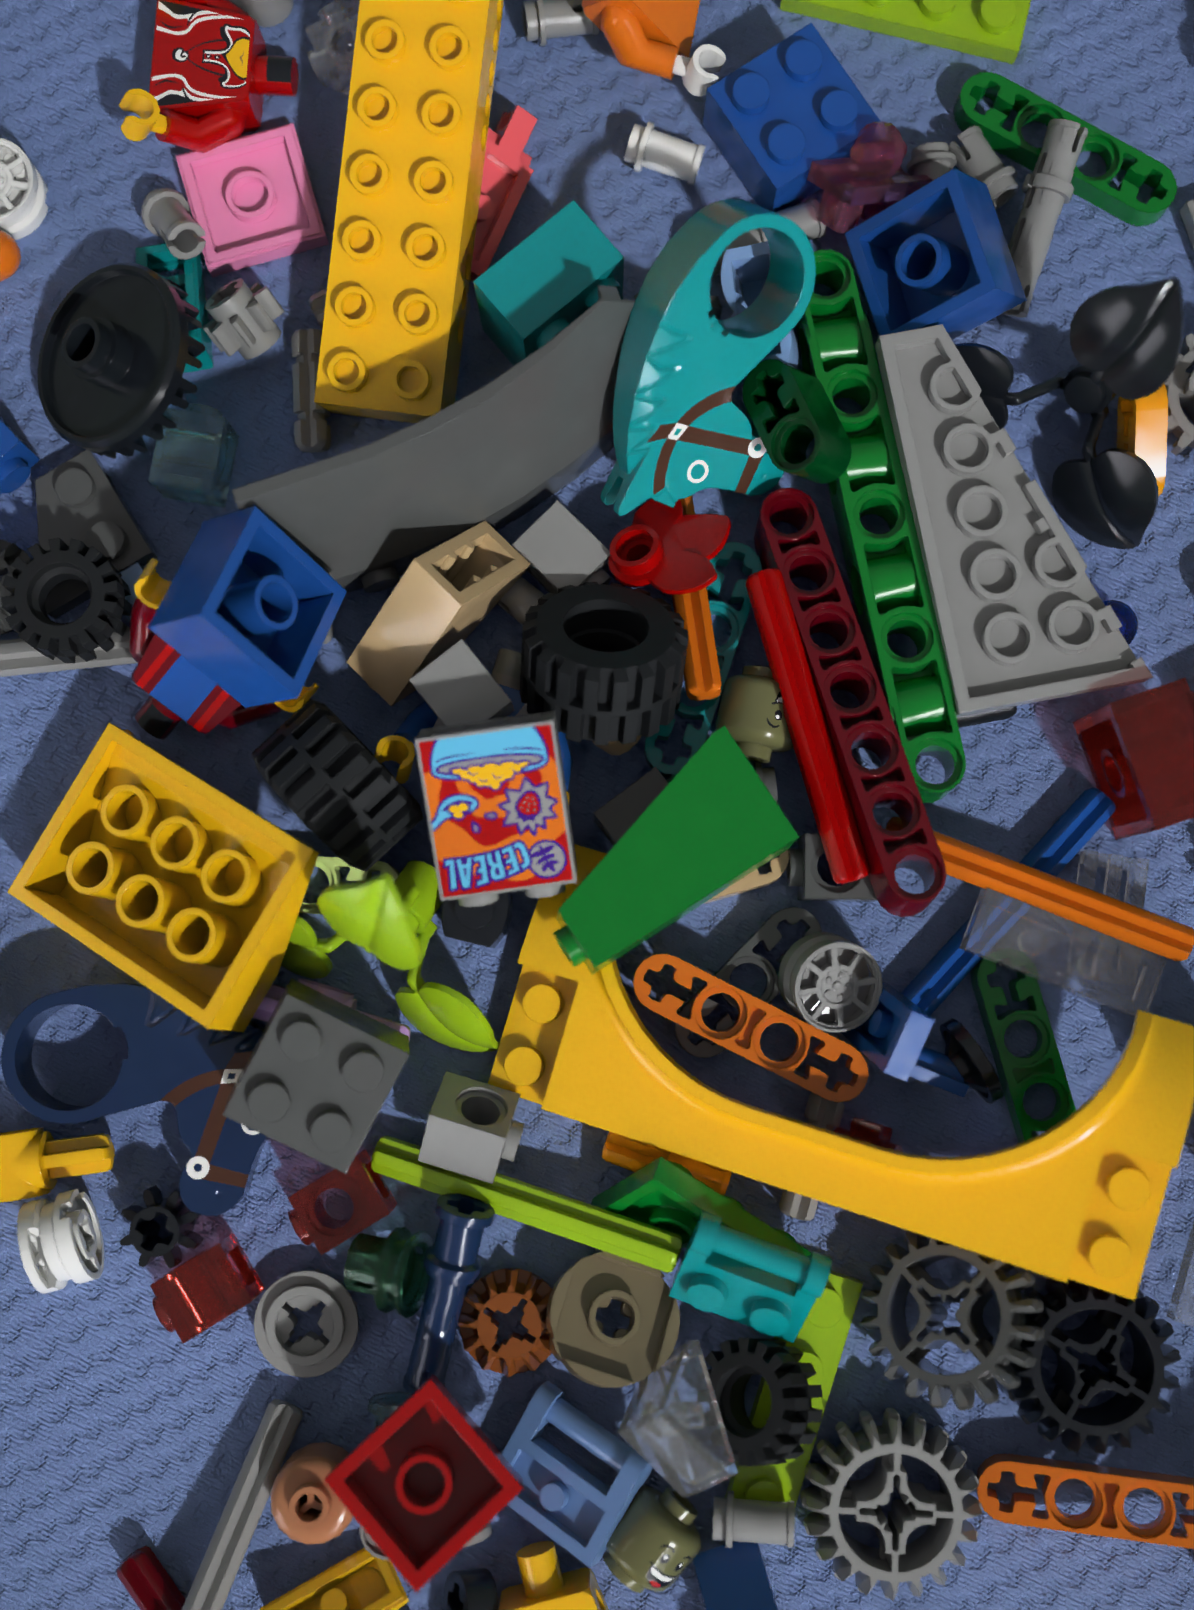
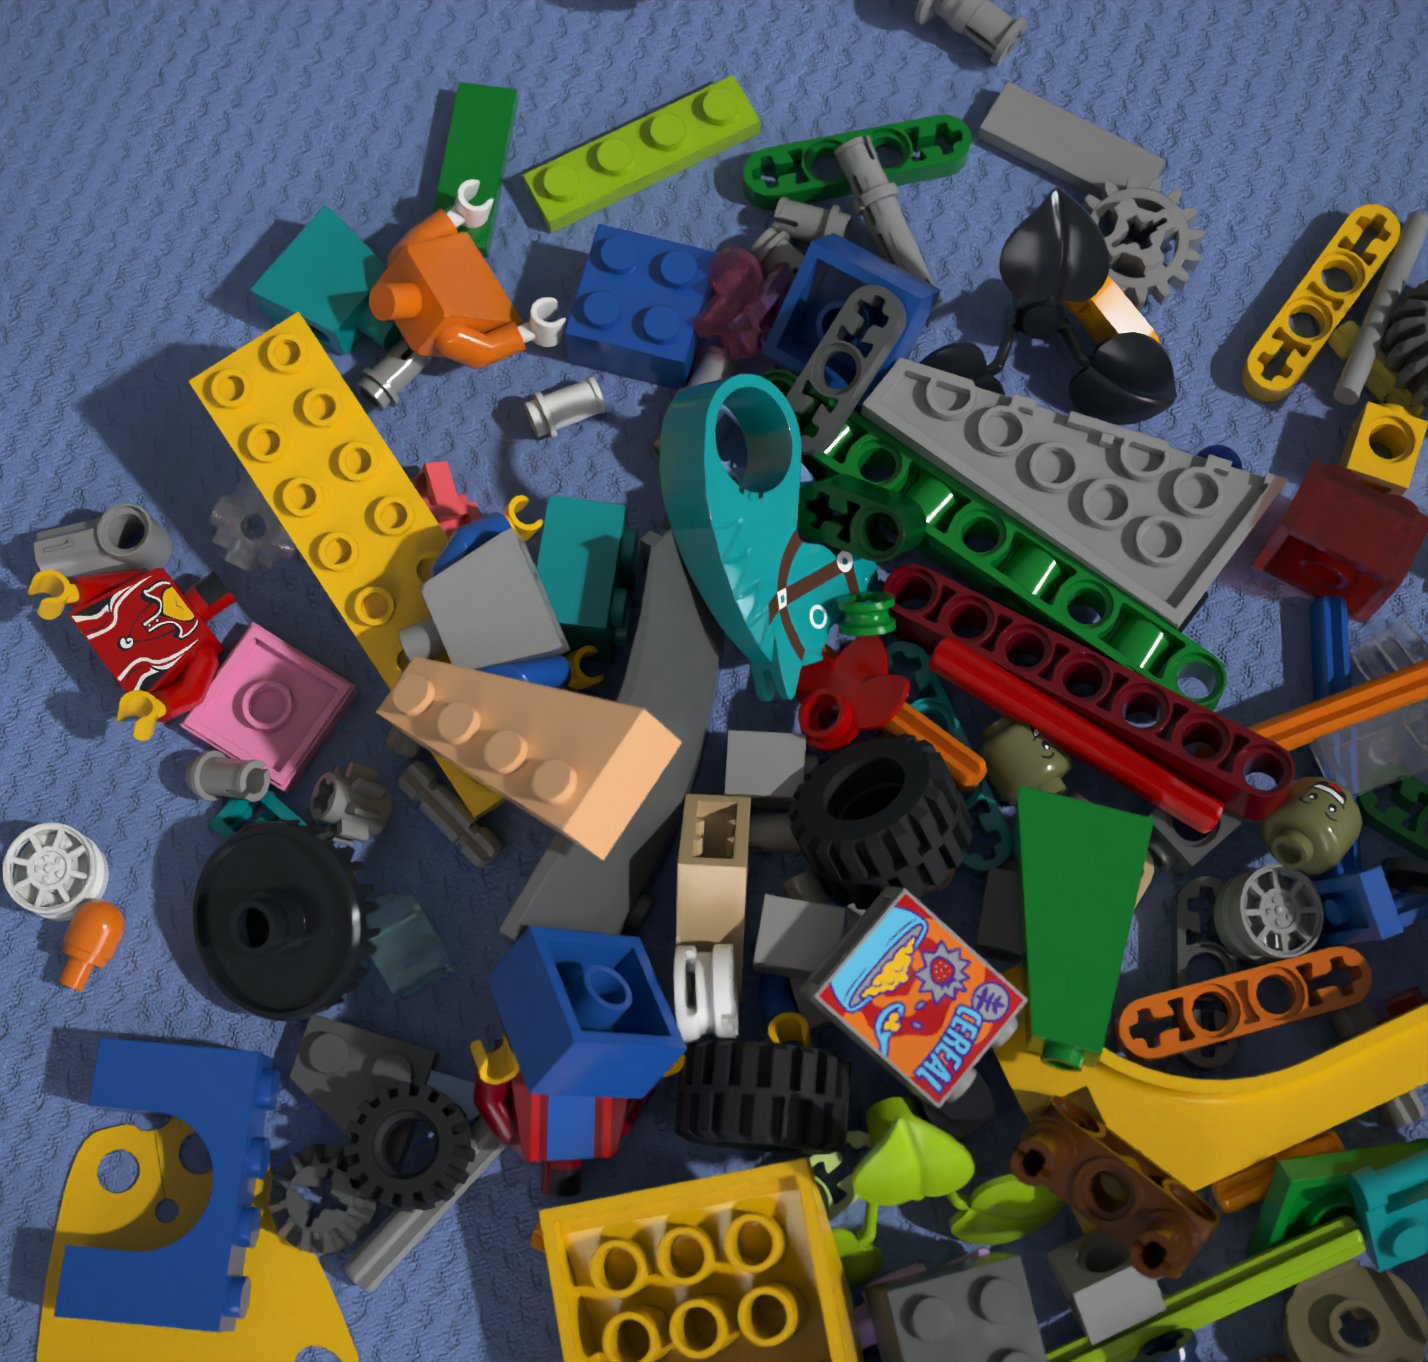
camera: 40 degrees left, 10 degrees down
(358, 673) = (715, 992): none -> white wheel
(372, 386) = (543, 748): none -> light nougat wedge
(449, 250) = (494, 607): none -> light grey torso
(519, 1017) = (1159, 1222): none -> reddish brown piece
(736, 500) = (866, 613): none -> green bush
(909, 306) = (882, 341): none -> dark grey beam
(921, 948) = (1313, 826): none -> olive head

